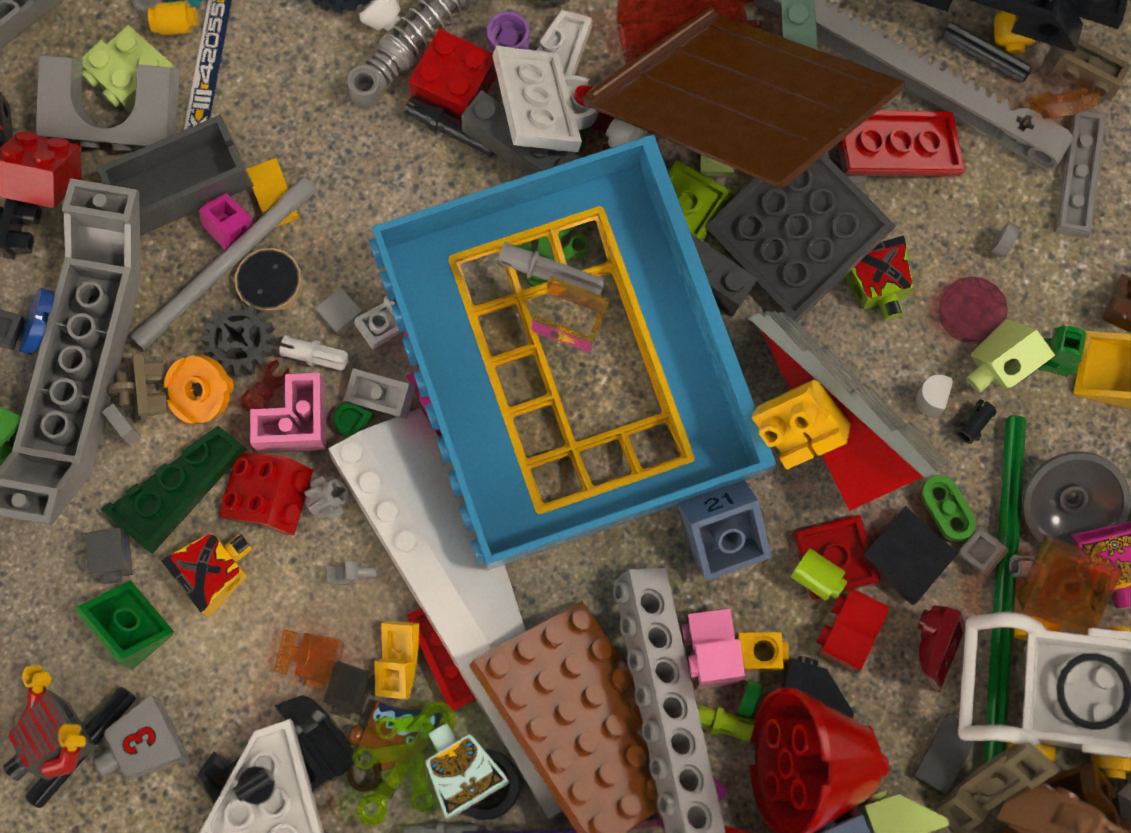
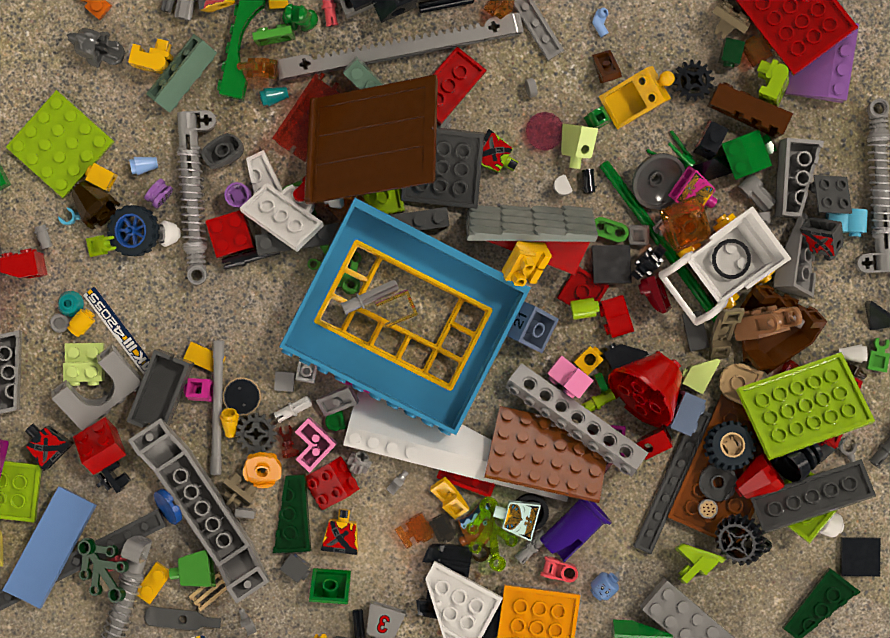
camera: 45 degrees left, 15 degrees up
(221, 291) = (229, 420): none -> yellow cone
(255, 785) = (447, 598): black plate -> none
(967, 593) = (648, 261): none -> black gear

